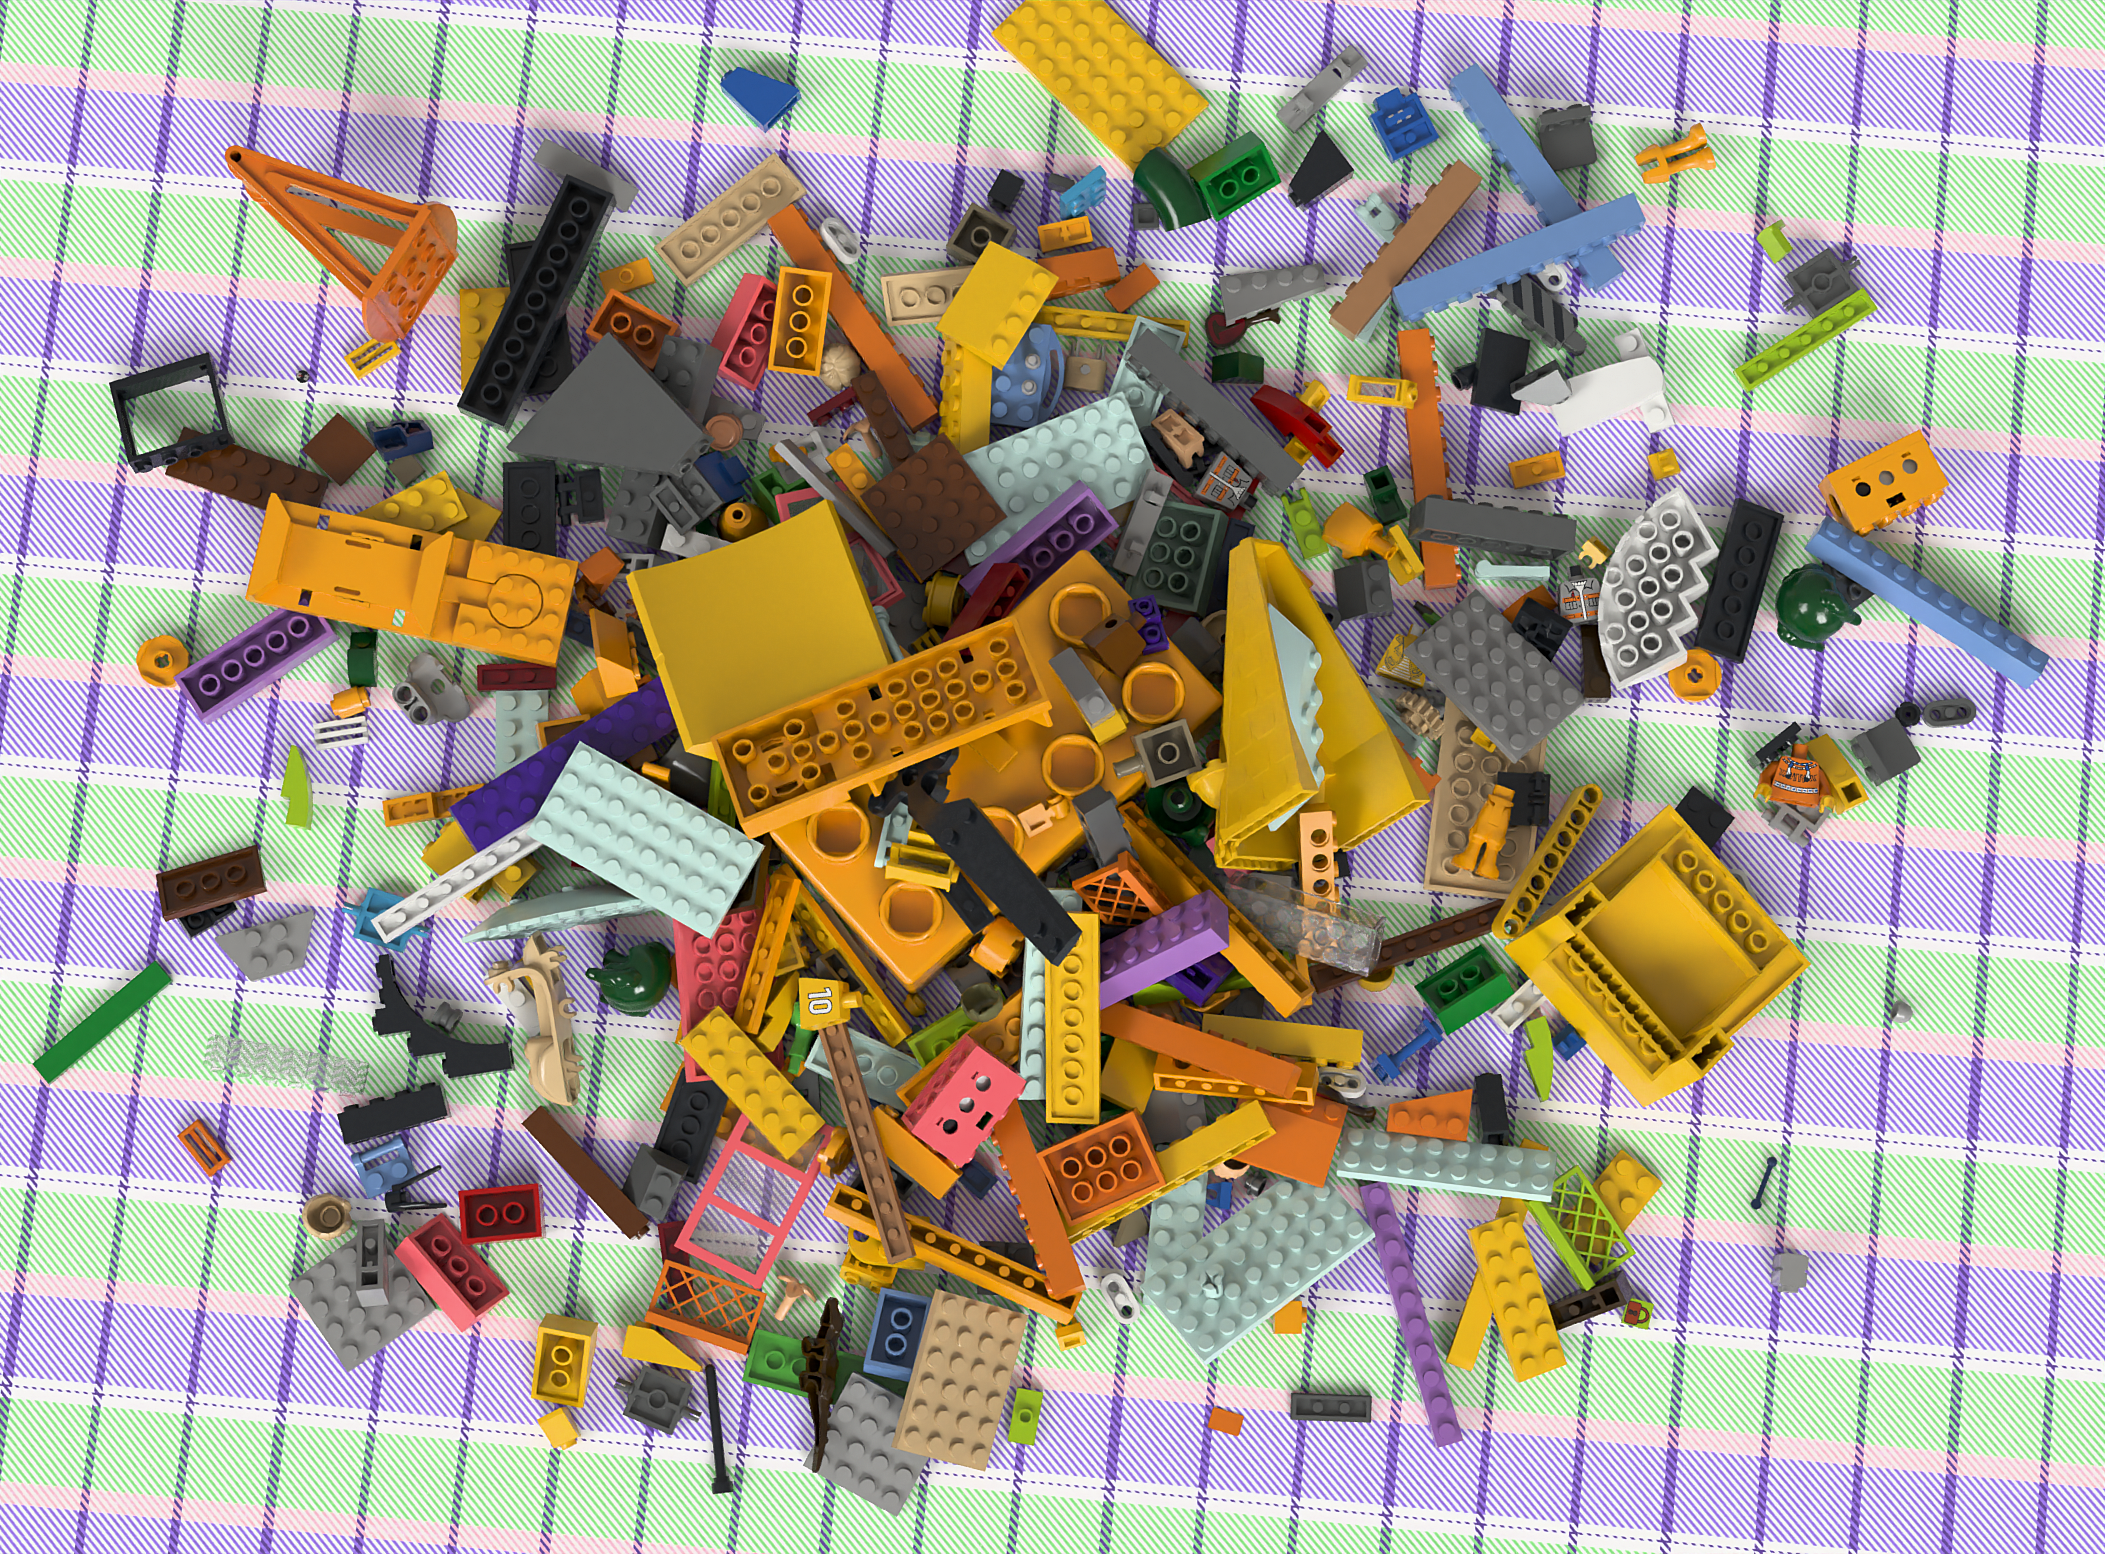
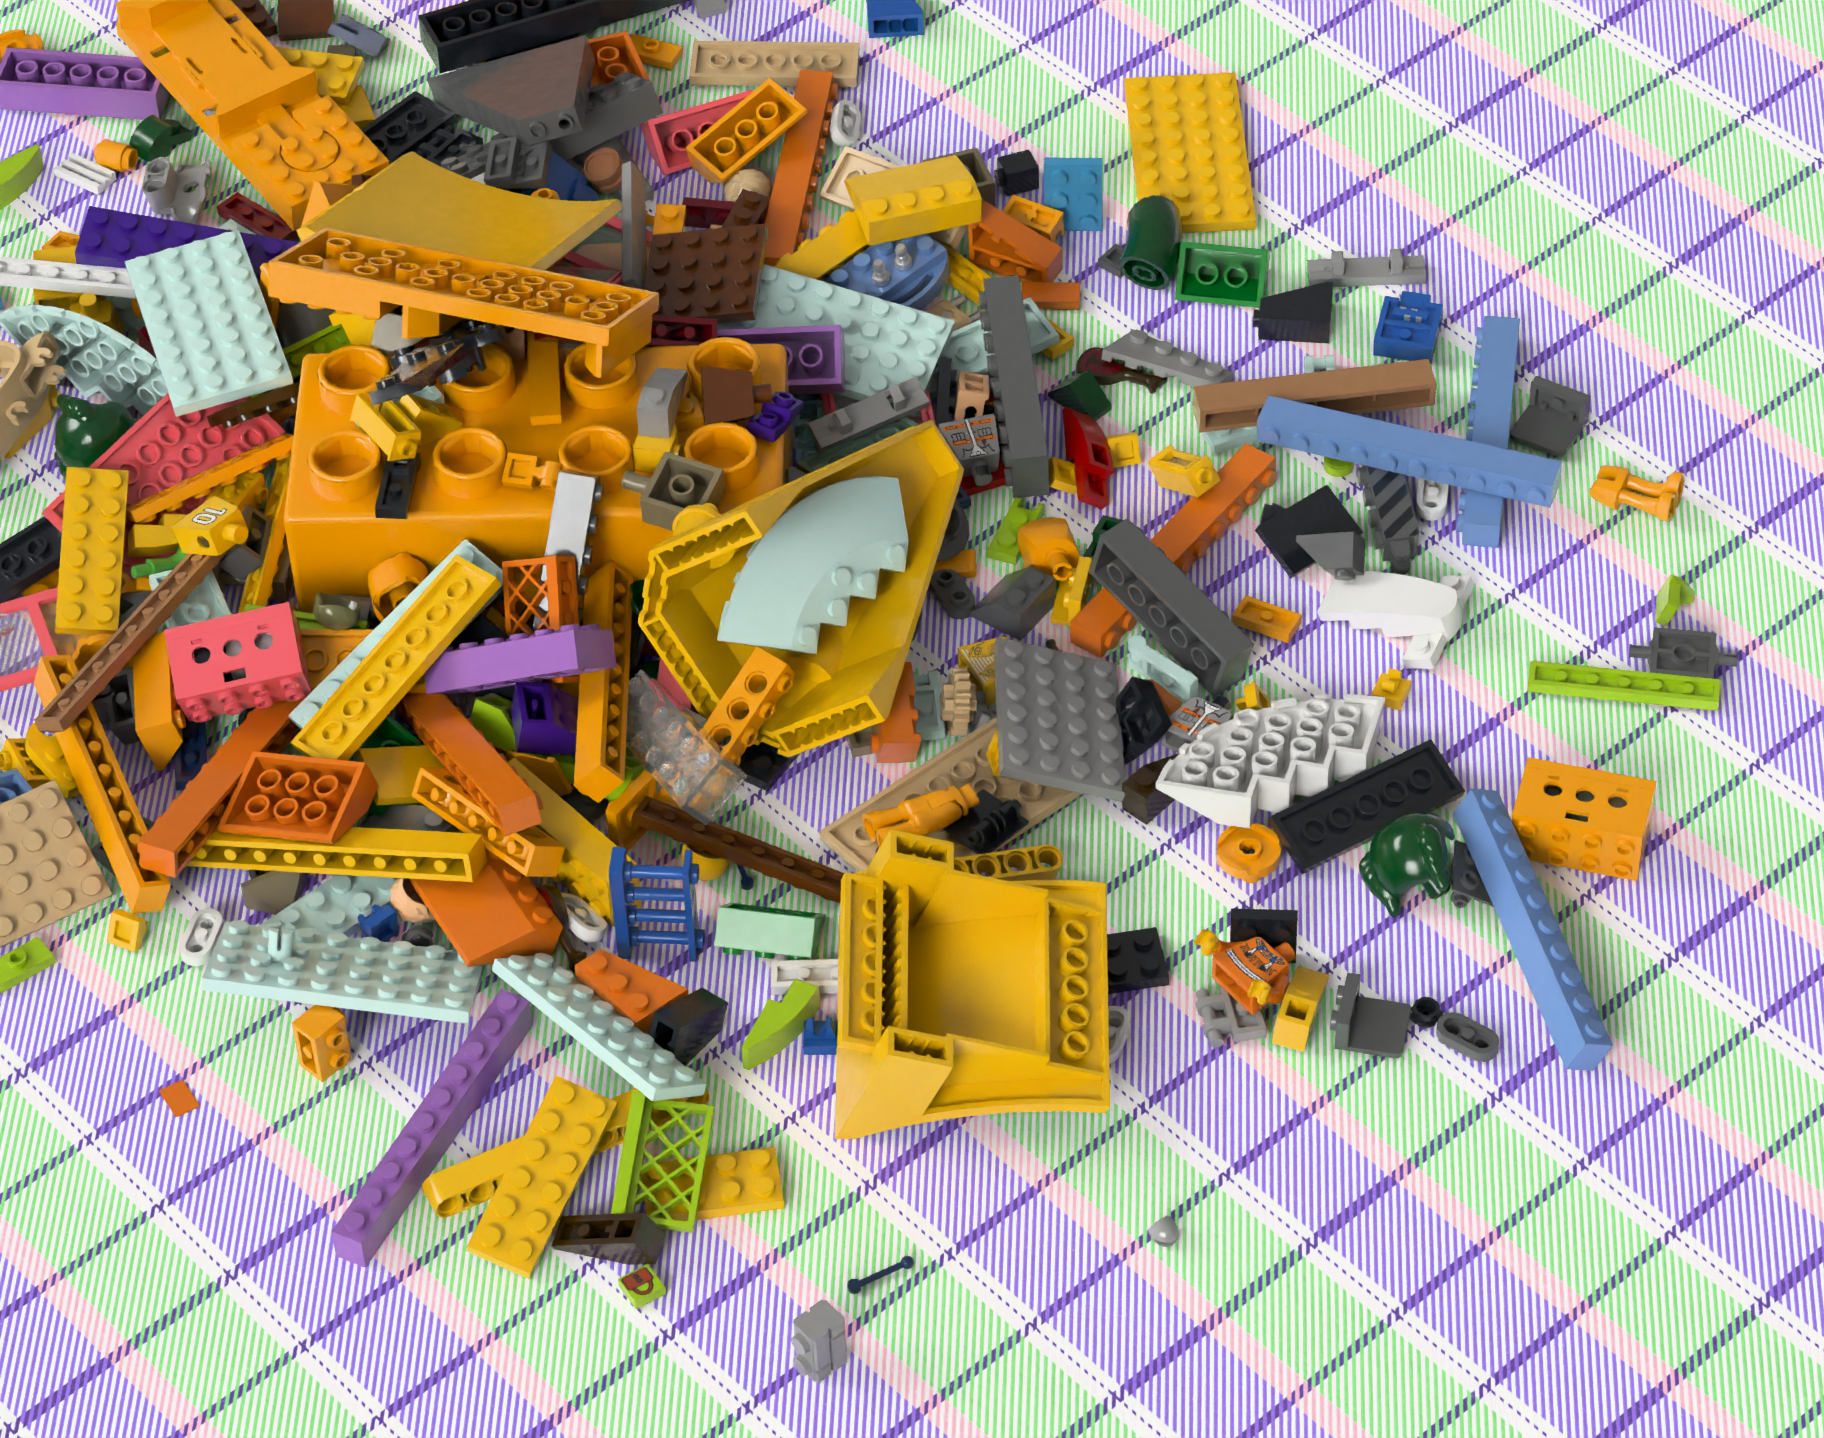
camera: 40 degrees right, 35 degrees down
(1331, 1407) = (281, 1153): dark grey tile -> none

